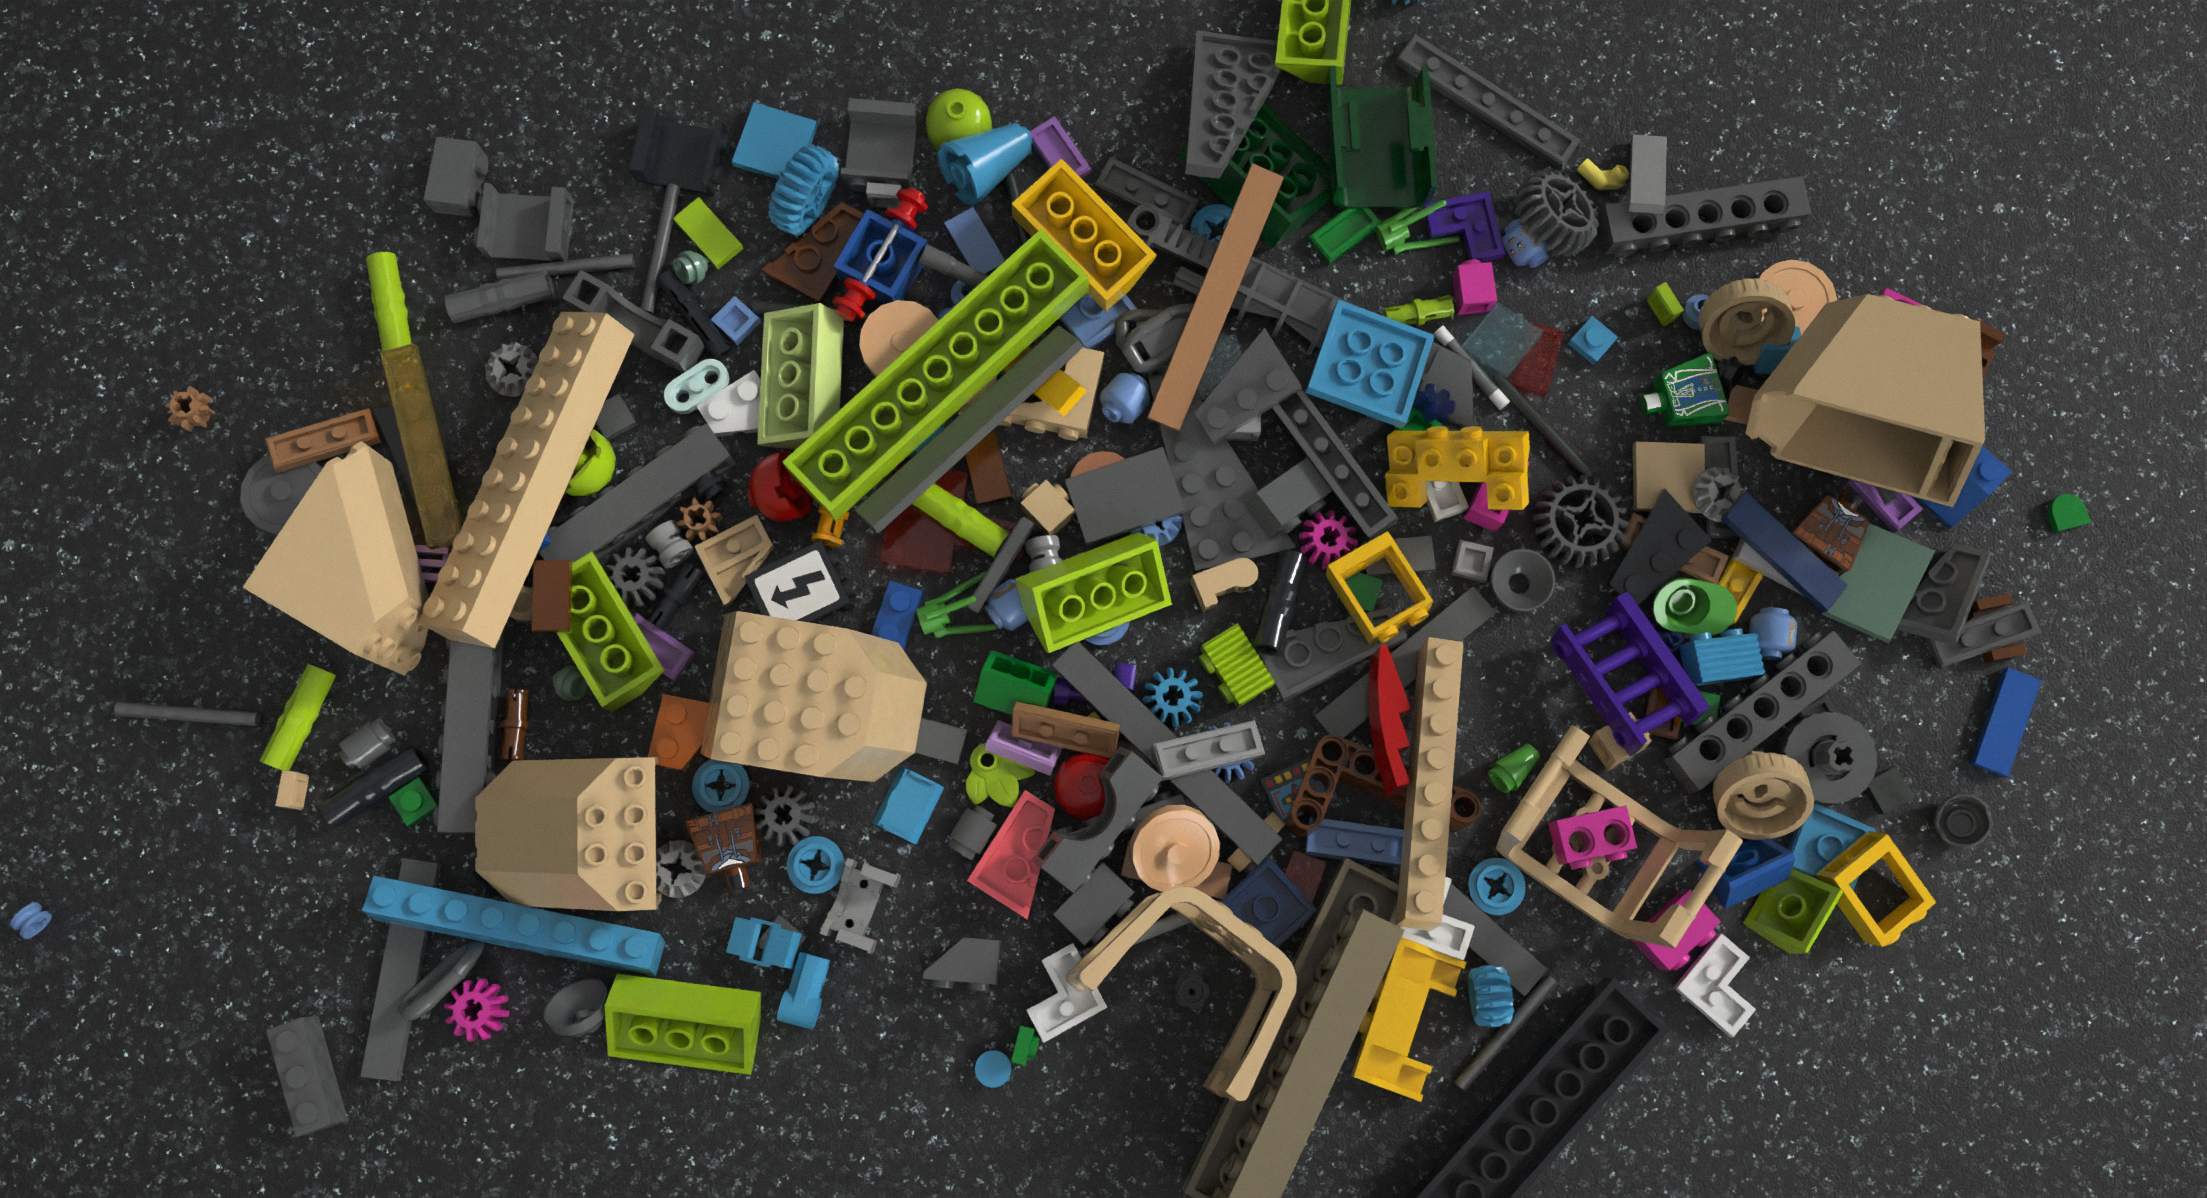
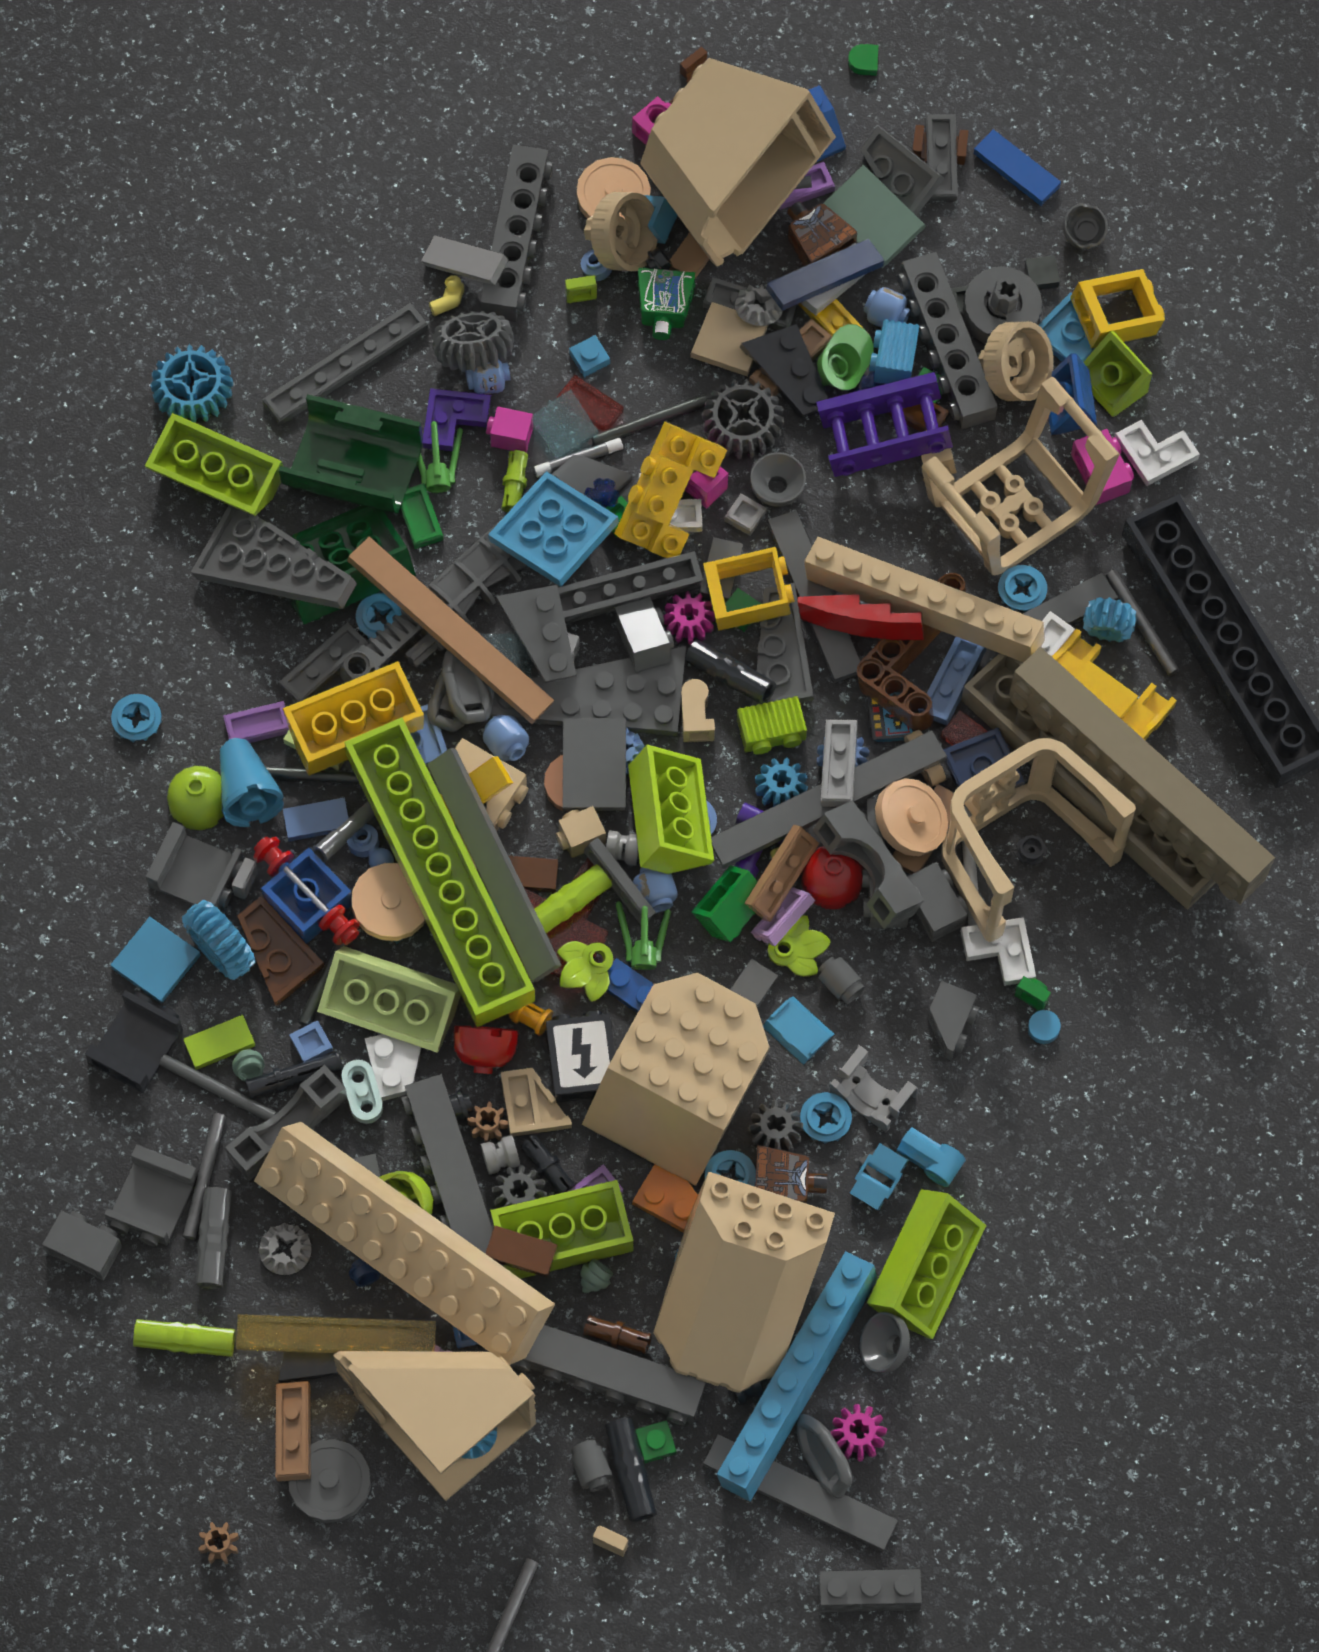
camera: 70 degrees left, 10 degrees down
(297, 718) = (545, 1520): lime axle -> none
(890, 560) = (583, 970): none -> lime plate
(1006, 865) = (872, 953): coral wing -> none
(1033, 25) = (127, 708): none -> dark azure gear
(1512, 769) = (931, 542): bright green cone -> none
(1591, 830) = (1005, 497): dark pink brick -> none

